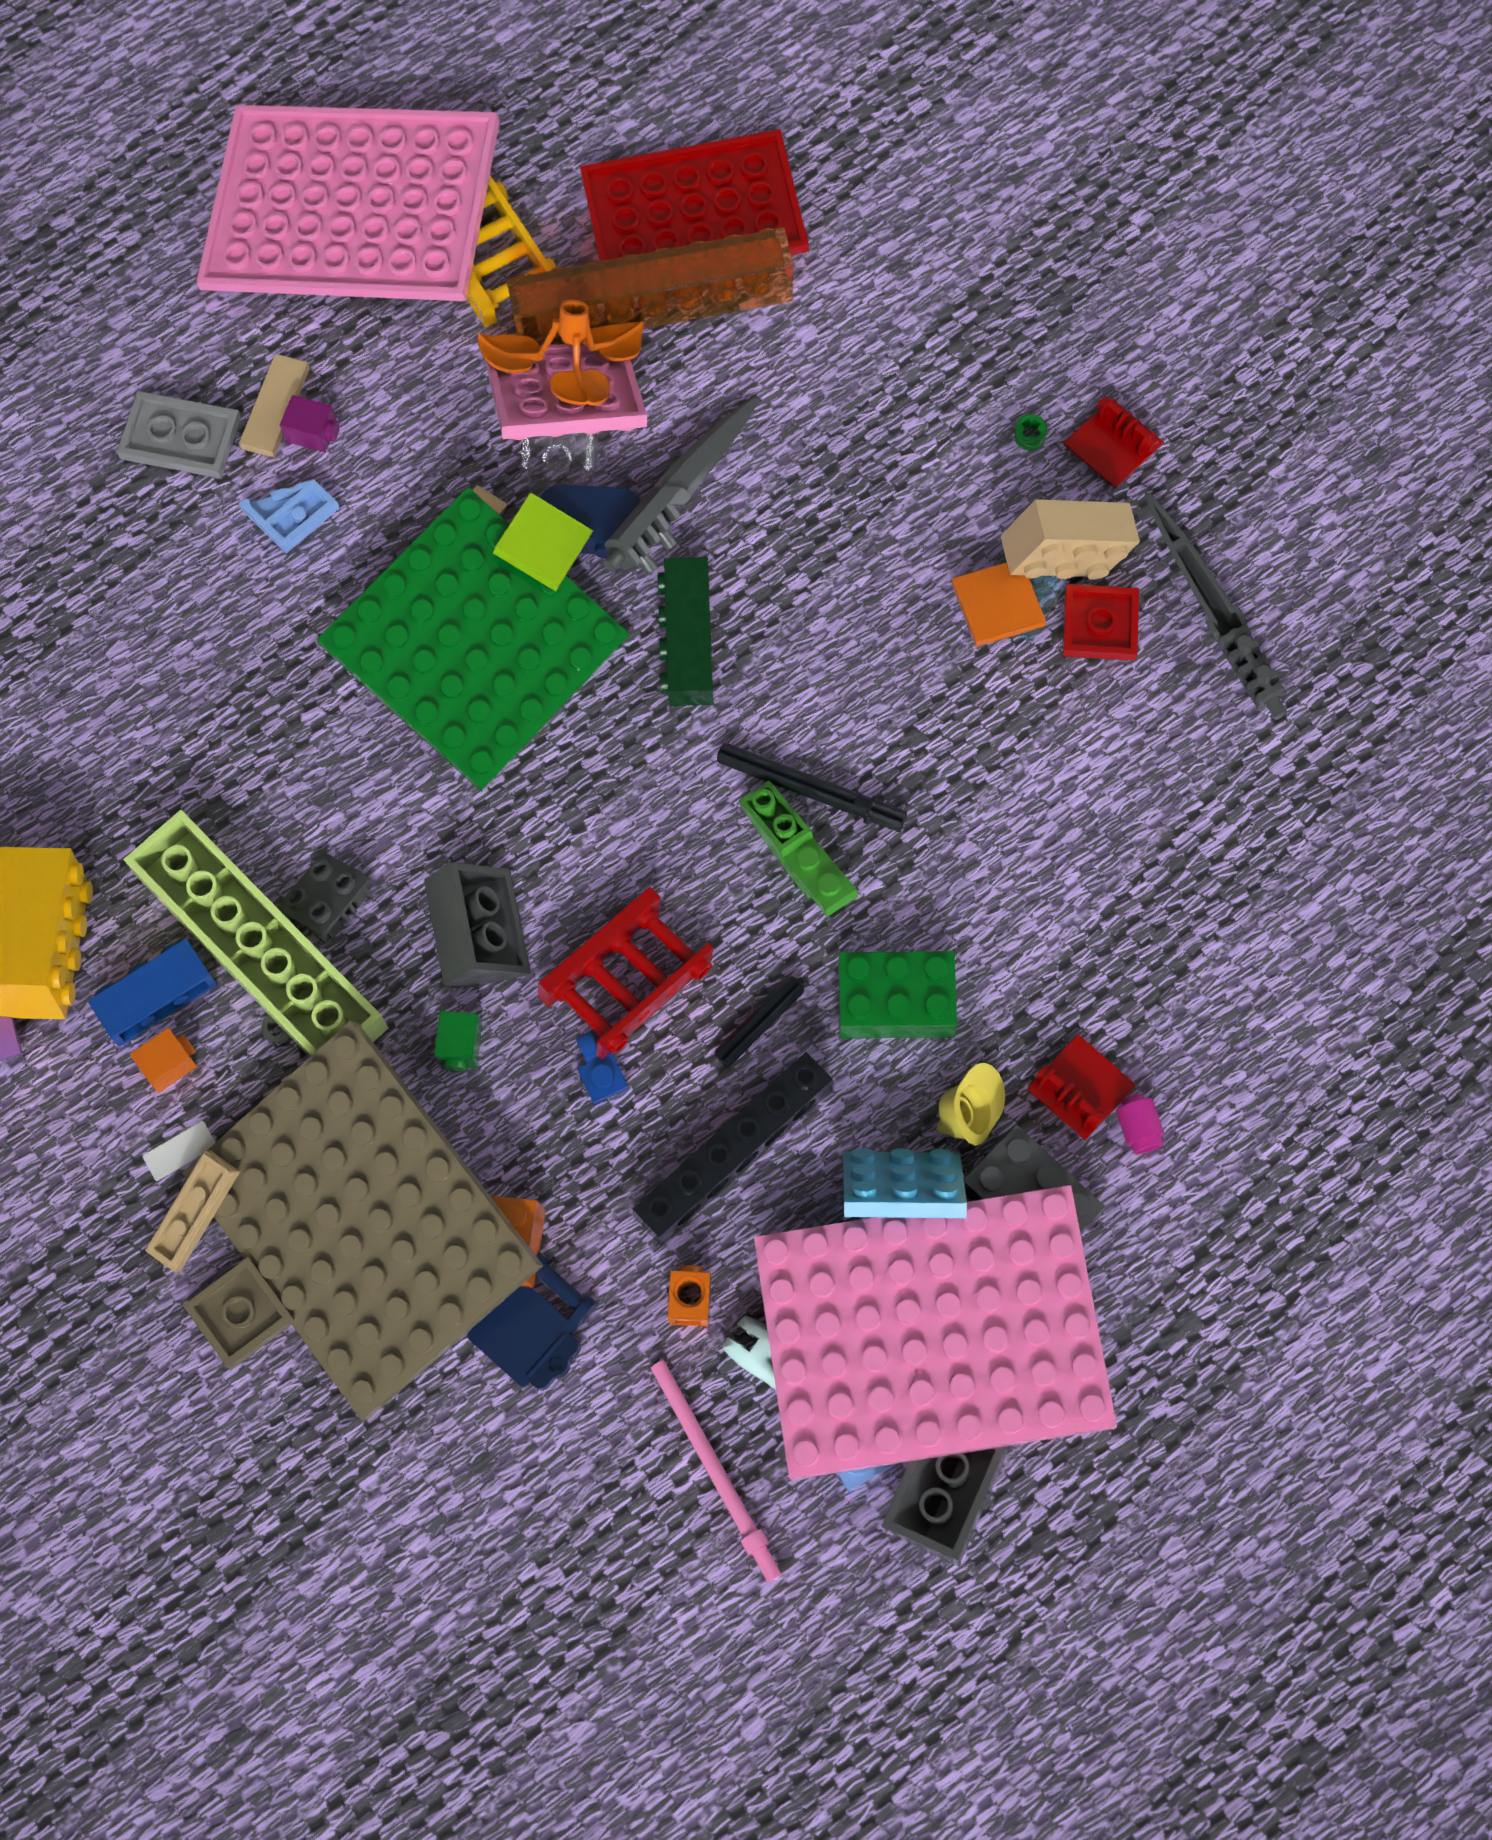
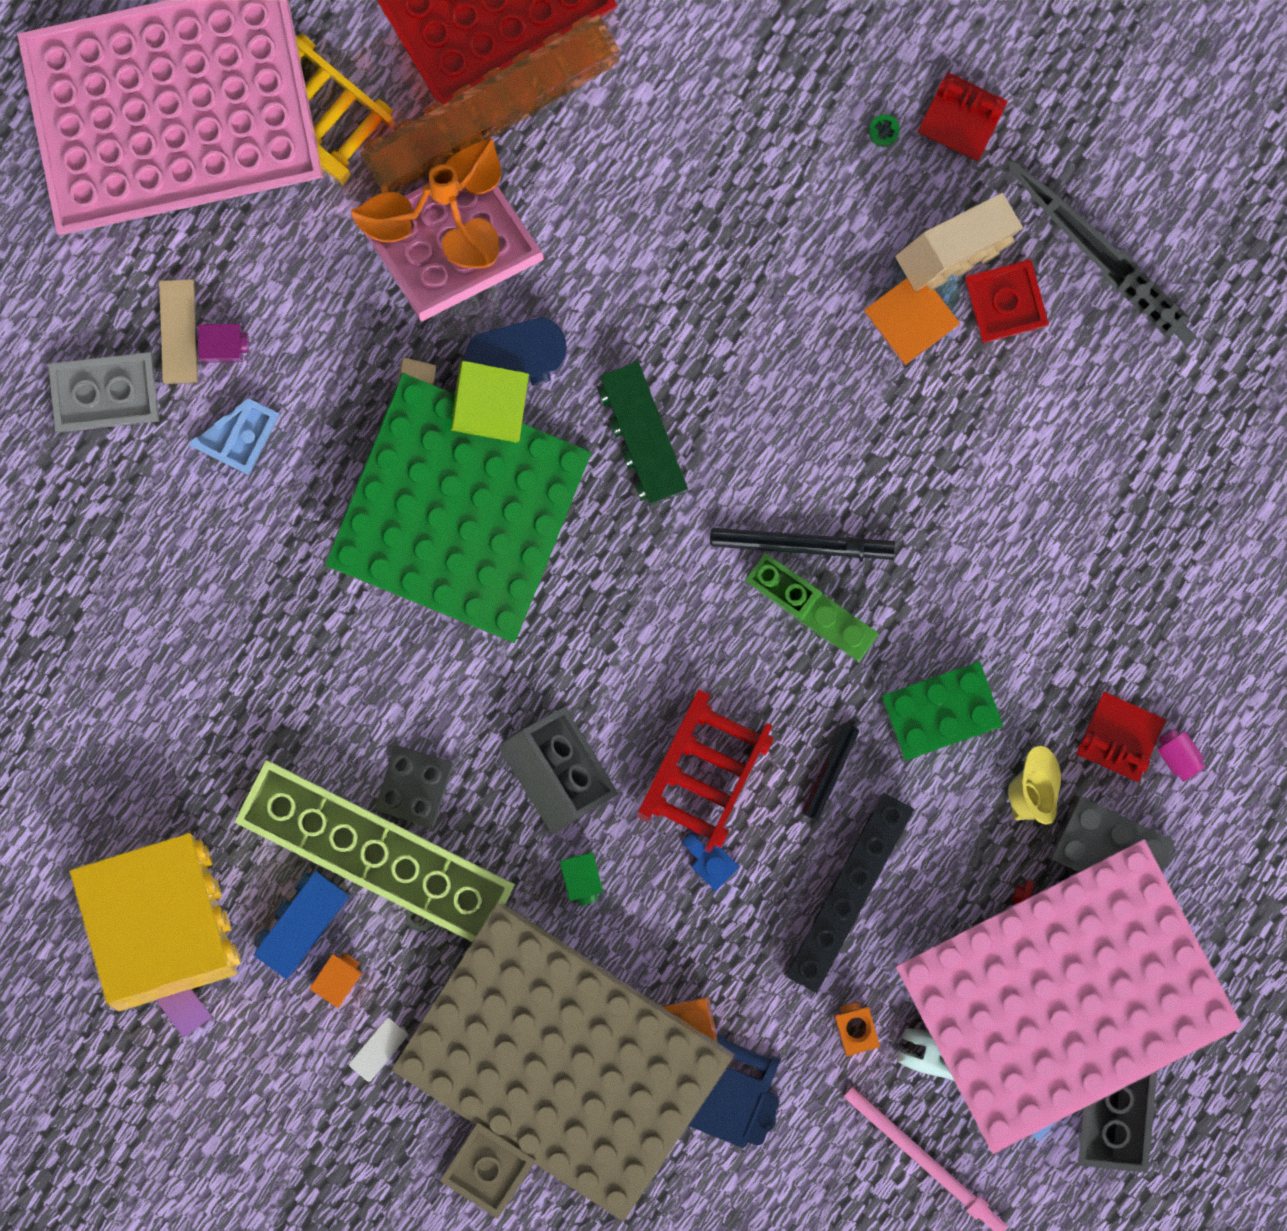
camera: 25 degrees left, 15 degrees up
(192, 1211) = (416, 1100): tan tile -> none
(652, 516) = (574, 344): dark grey piece -> none
(903, 1184) = (1004, 880): medium azure plate -> none

